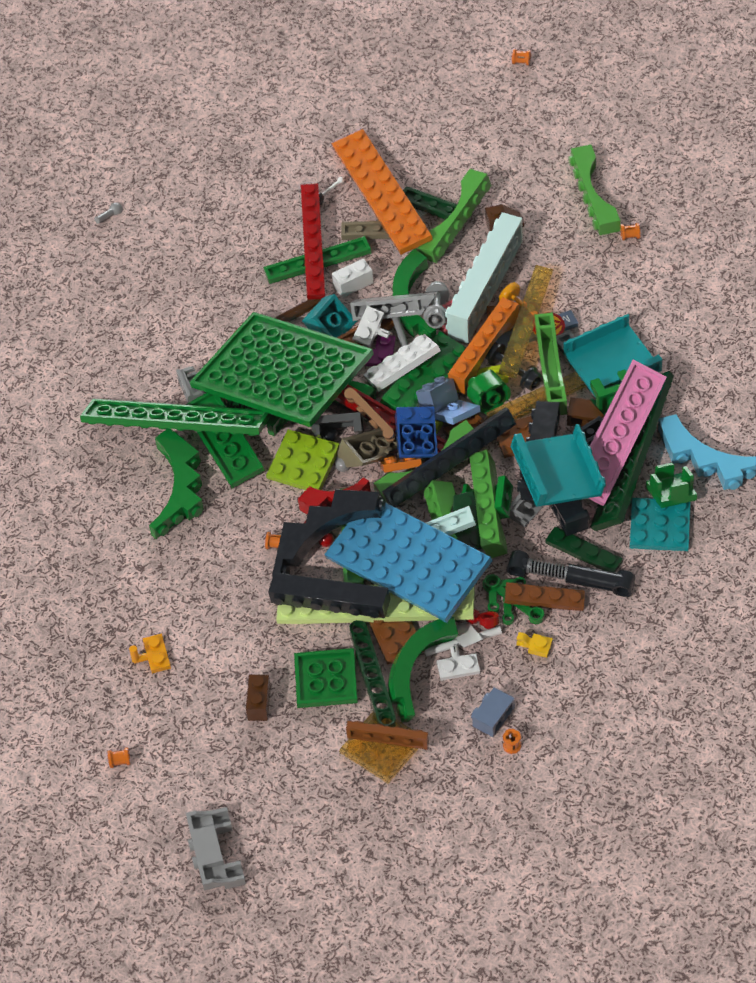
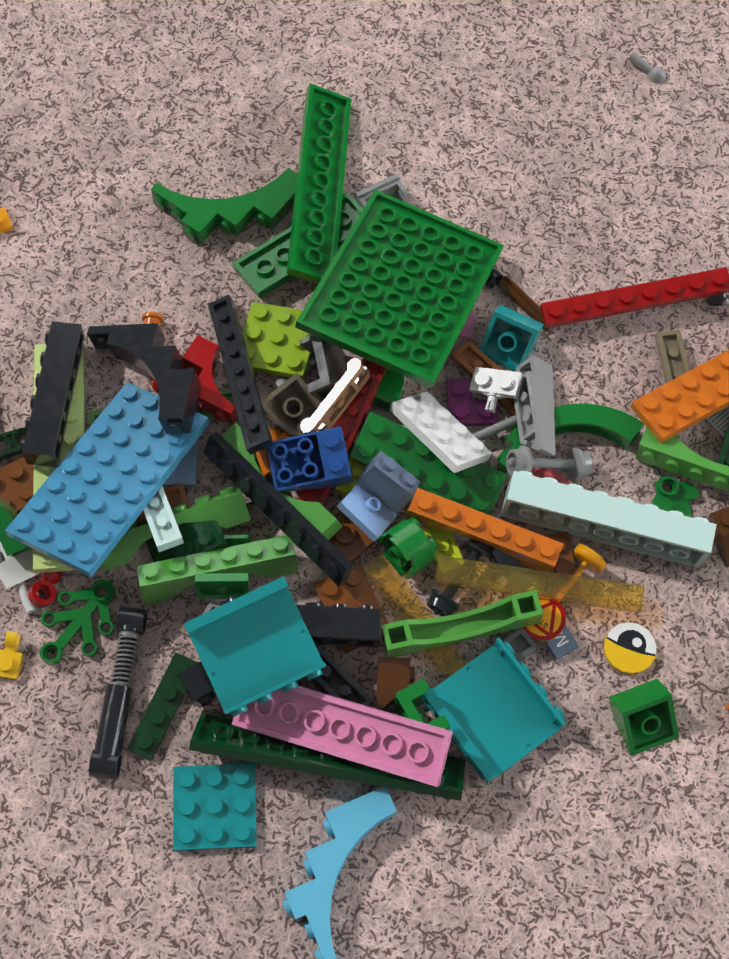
camera: 75 degrees right, 15 degrees up
(331, 256) = (620, 326): green plate -> none
(334, 475) = (240, 375): none -> black plate
(352, 278) = (584, 355): white brick -> none
(470, 245) = (678, 498): none -> green plate
(544, 596) = (79, 661): dark orange plate -> none
(575, 284) = (629, 648): none -> tile
(624, 279) = (645, 716): none -> green slope
(671, 488) = (268, 815): green panel -> none

